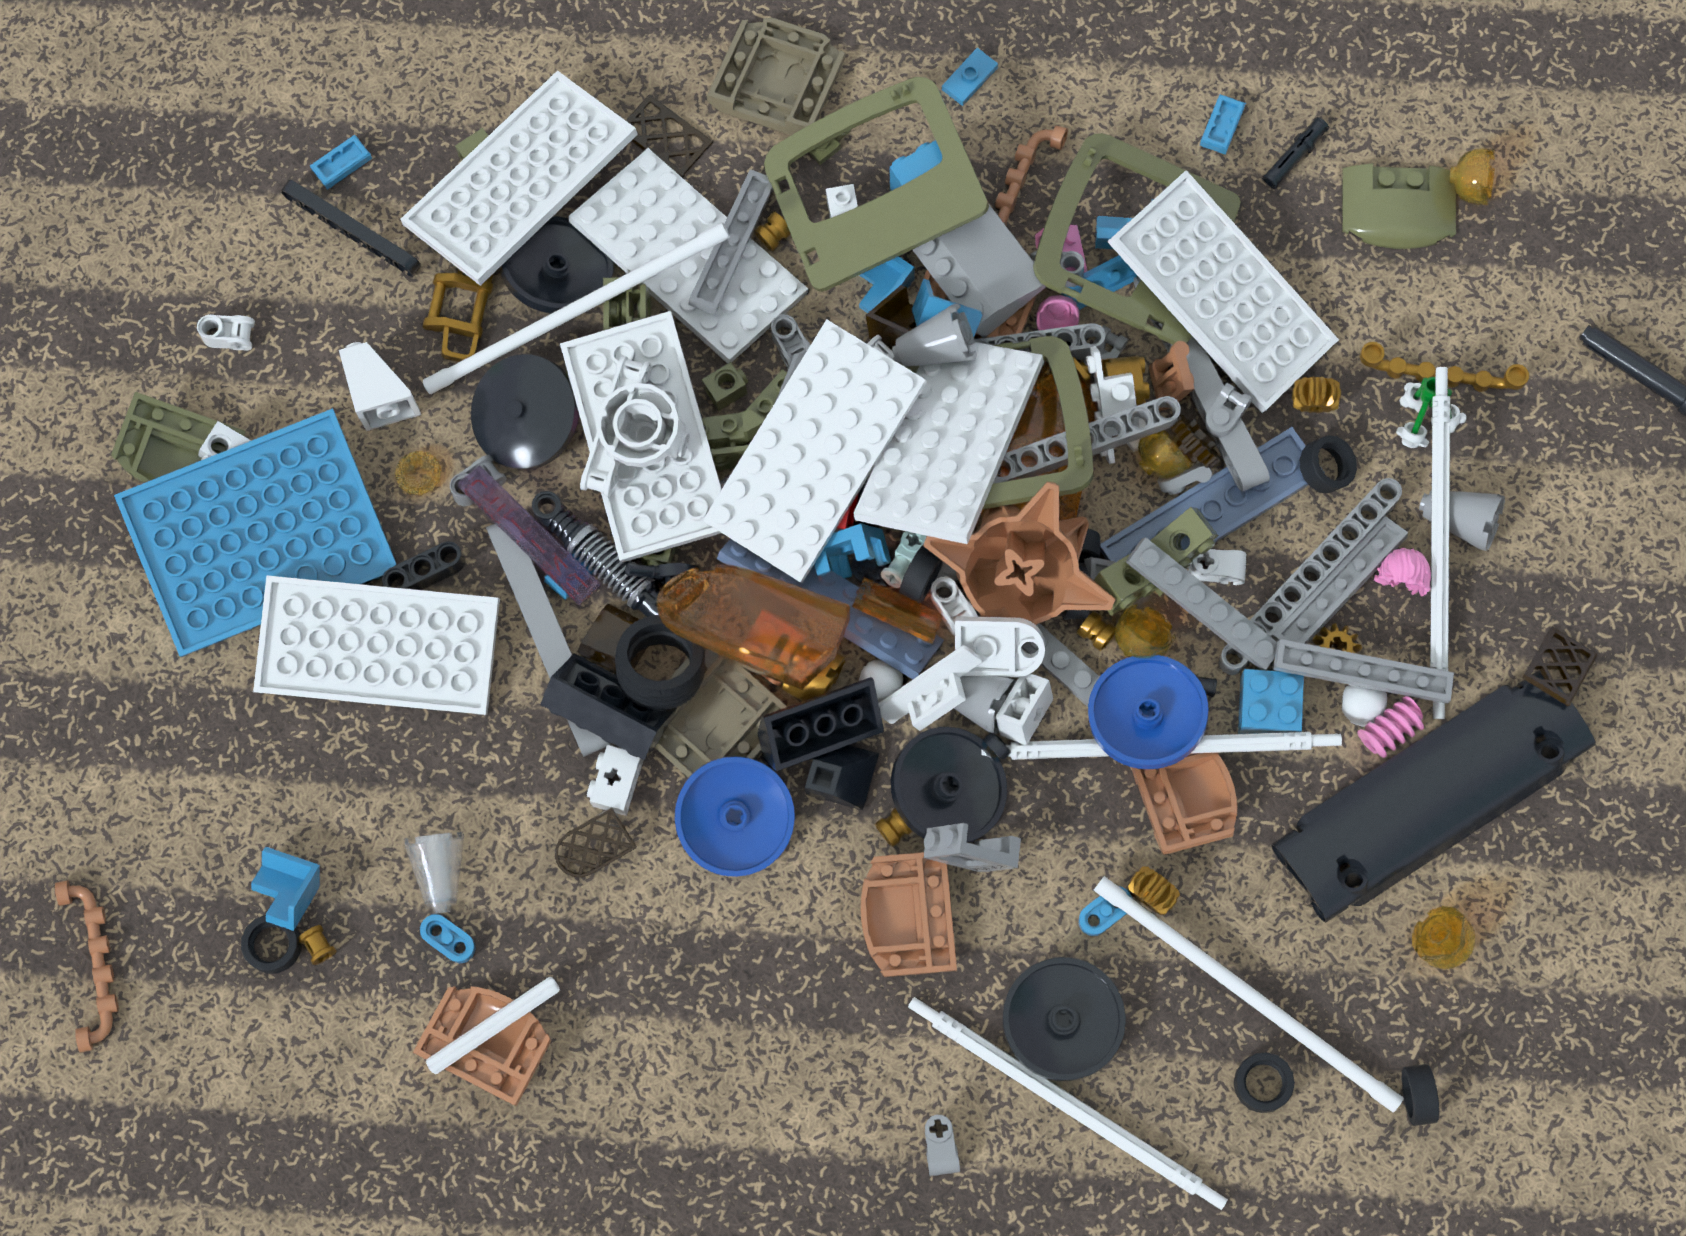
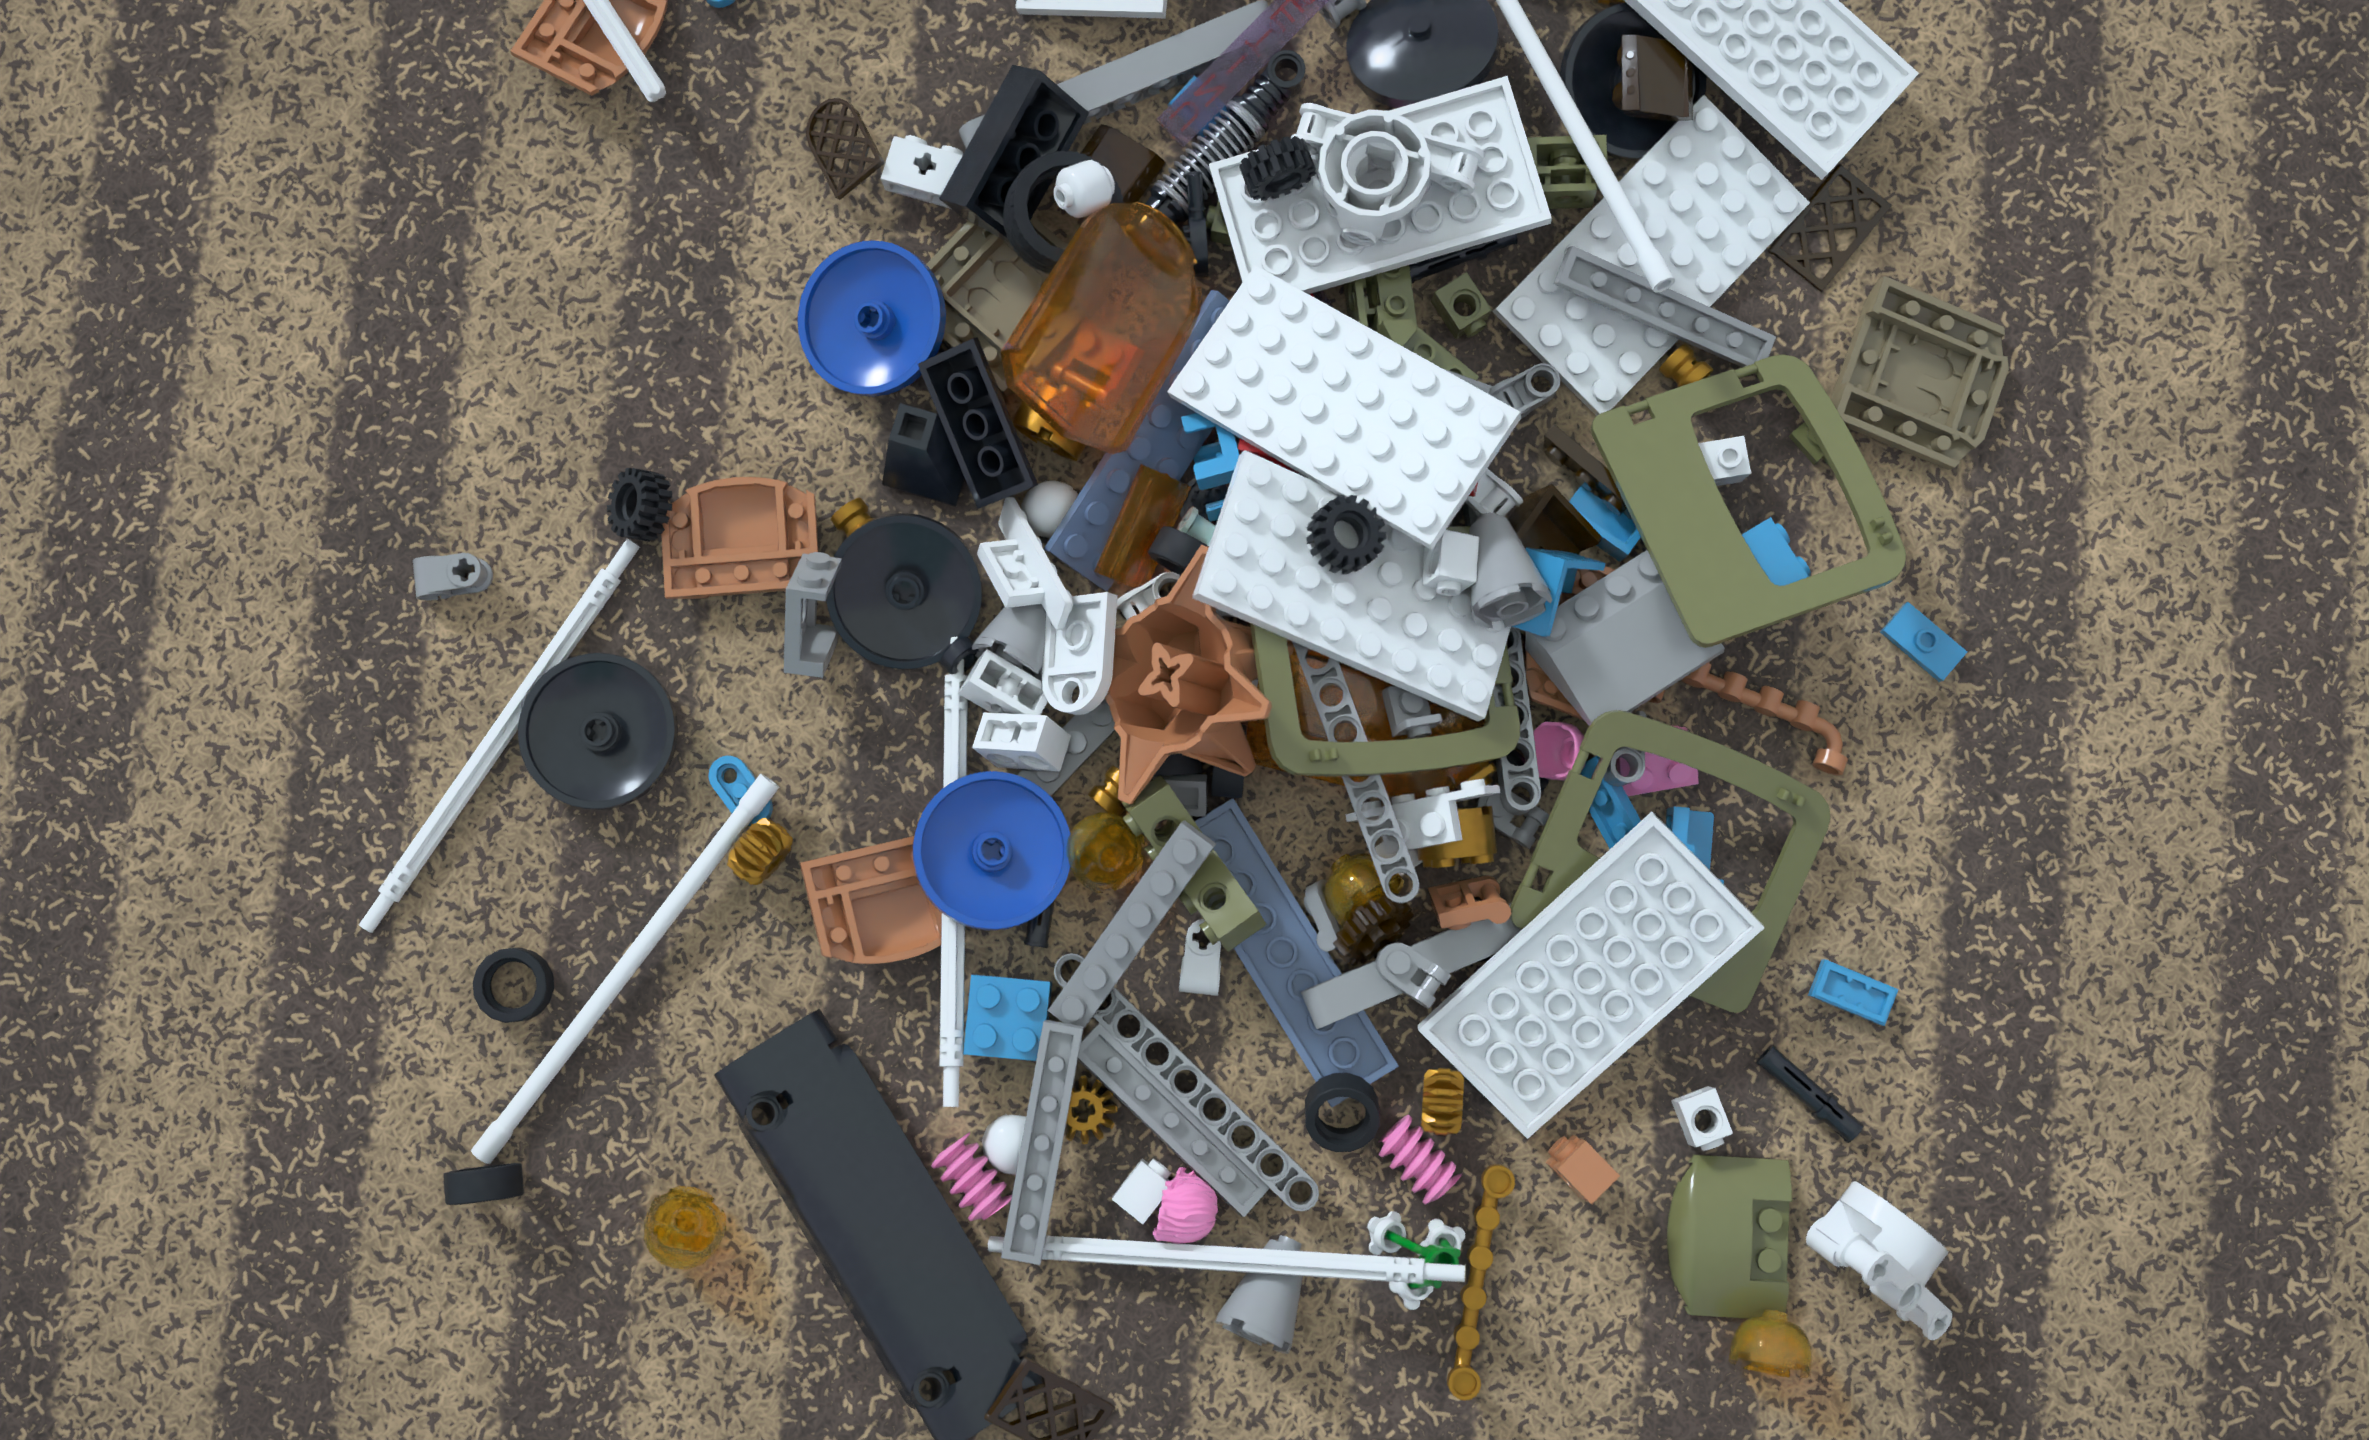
camera: 85 degrees right, 10 degrees up
(559, 247) = (1654, 80): none -> dark brown slope
(631, 501) = (1277, 168): none -> black tyre
(649, 636) = (1084, 188): none -> white head
(851, 296) = (1588, 470): none -> dark brown plate
(883, 977) = (639, 504): none -> black tyre
(919, 453) = (1331, 549): none -> black tyre
(937, 372) = (1451, 563): none -> white brick
(1039, 410) = (1408, 713): none -> light grey bracket
(1064, 693) = (1021, 741): none -> white brick
(1312, 232) = (1686, 1110): none -> white brick
(1357, 411) = (1418, 1160): none -> bright pink piece
(1359, 299) = (1581, 1168): none -> nougat brick
(1392, 604) = (1142, 1189): none -> white brick
(1402, 99) = (1887, 1251): none -> white piece

